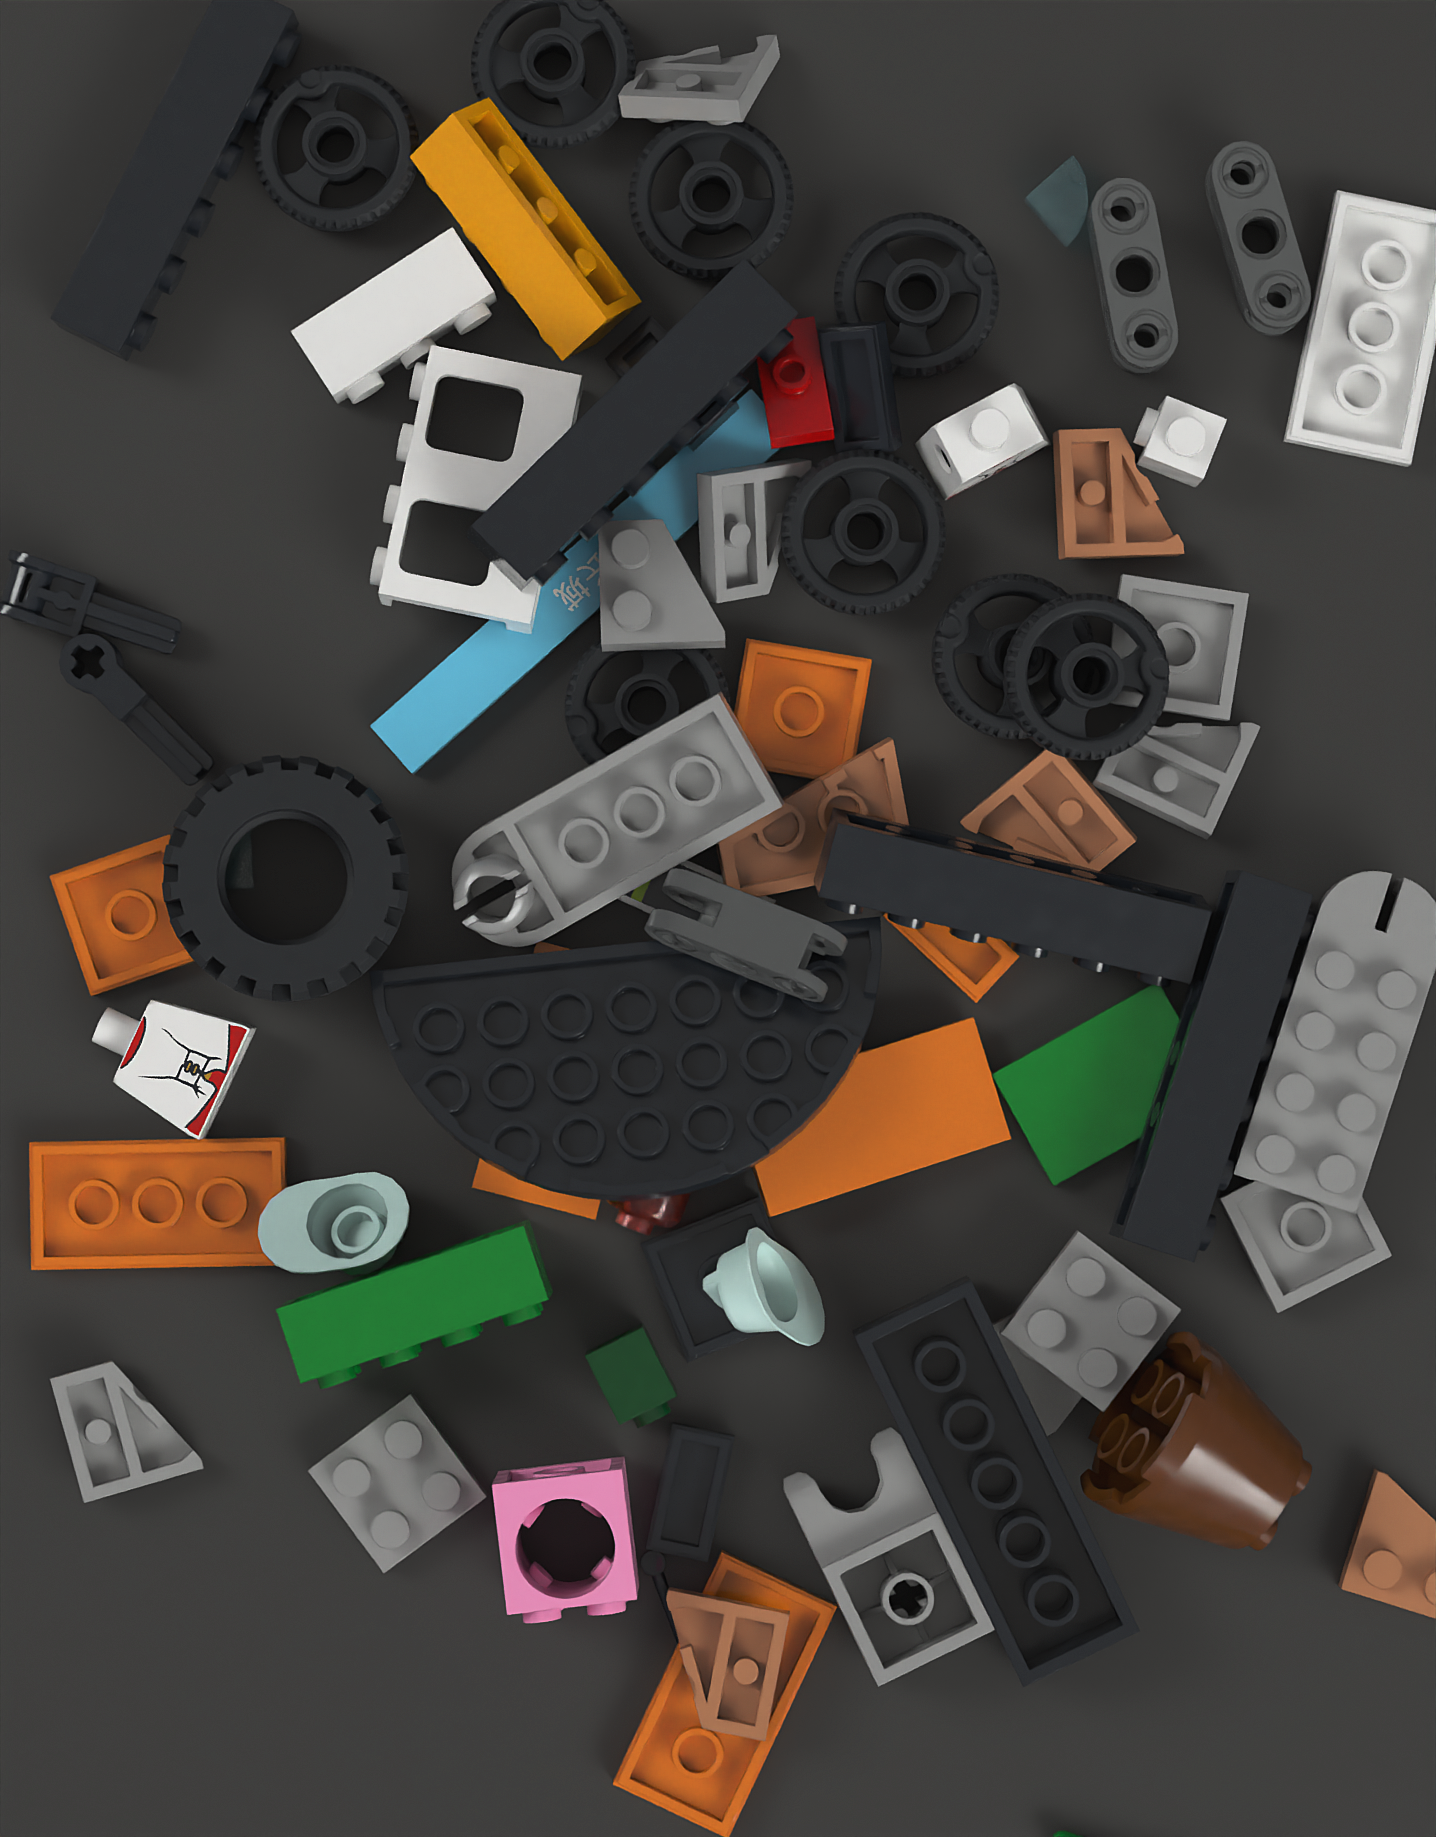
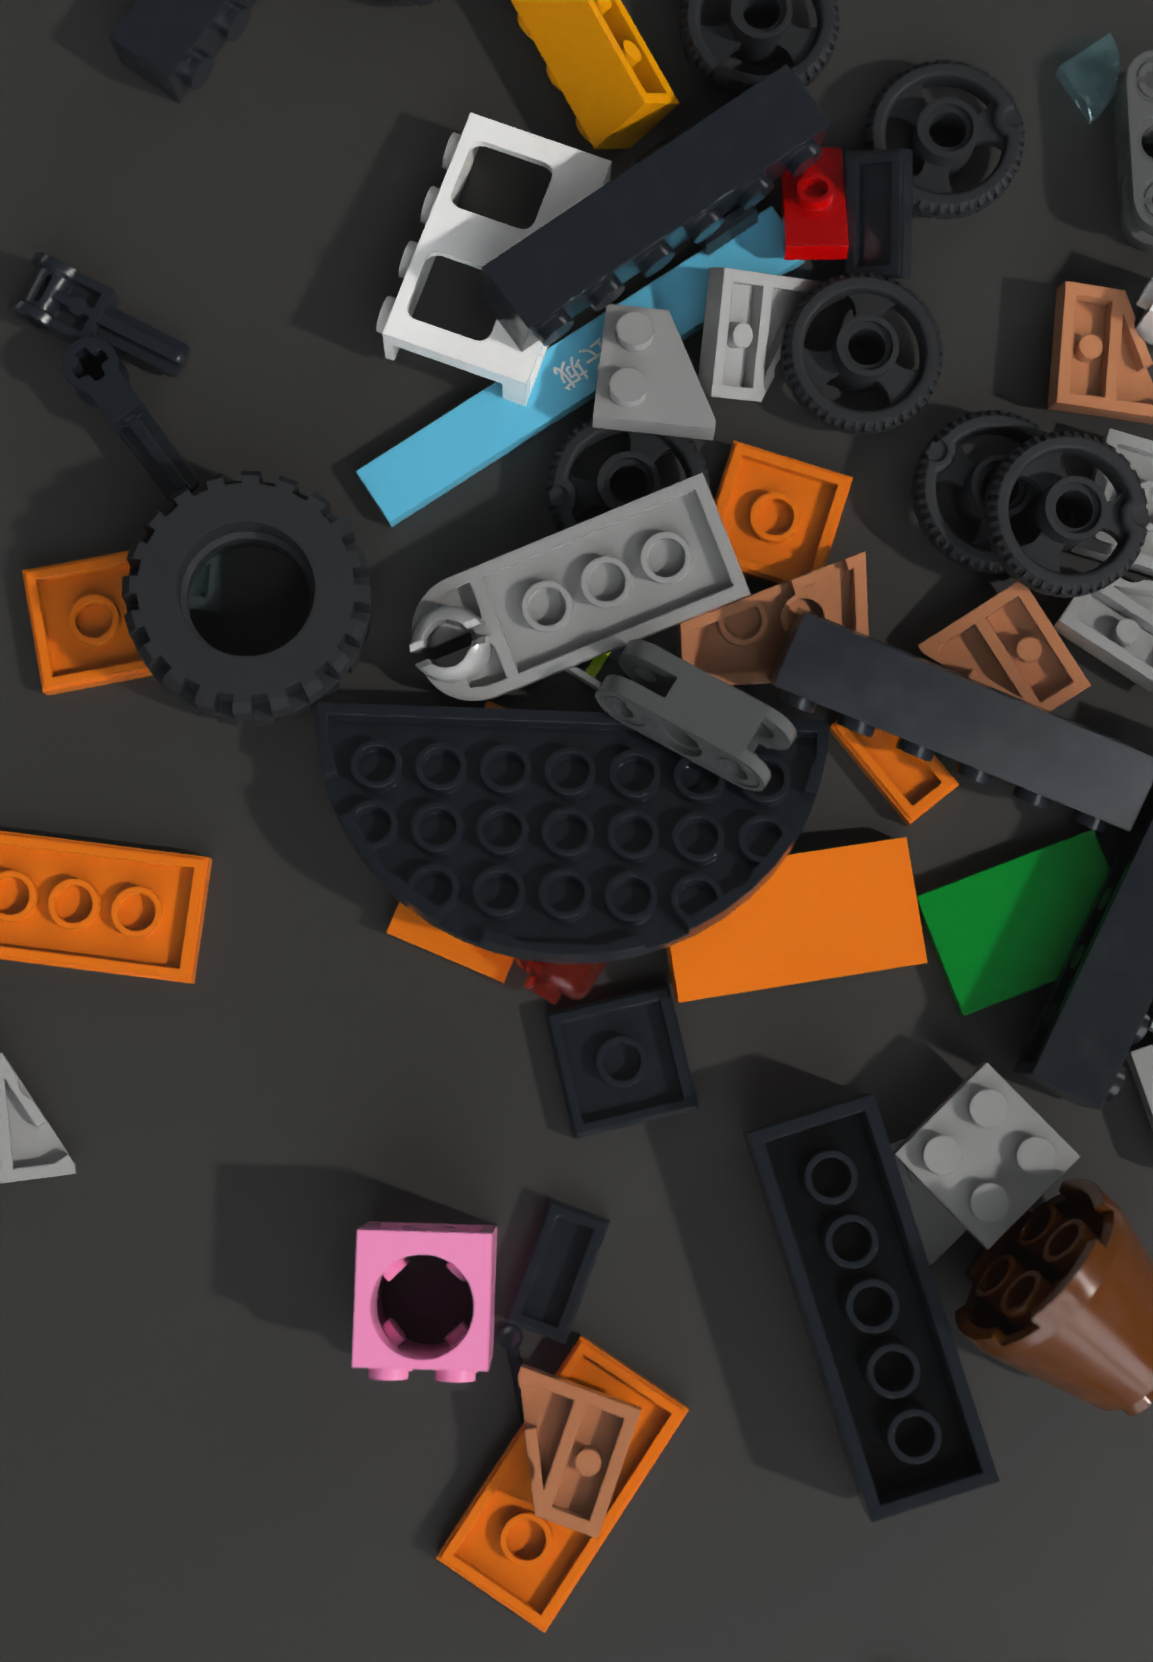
camera: 10 degrees right, 5 degrees down
(176, 1060) = (115, 764): white torso -> none
(335, 1224) = (244, 948): light aqua piece -> none
(396, 317) = (436, 85): white brick -> none
(398, 1482) = (267, 1217): light grey plate -> none
(415, 1302) = (306, 1035): green brick -> none
(632, 1376) = (517, 1145): dark green brick -> none
(767, 1290) = (663, 1075): light aqua piece -> none
(884, 1543) = (748, 1352): light grey brick -> none
(981, 440) = (996, 279): white torso -> none

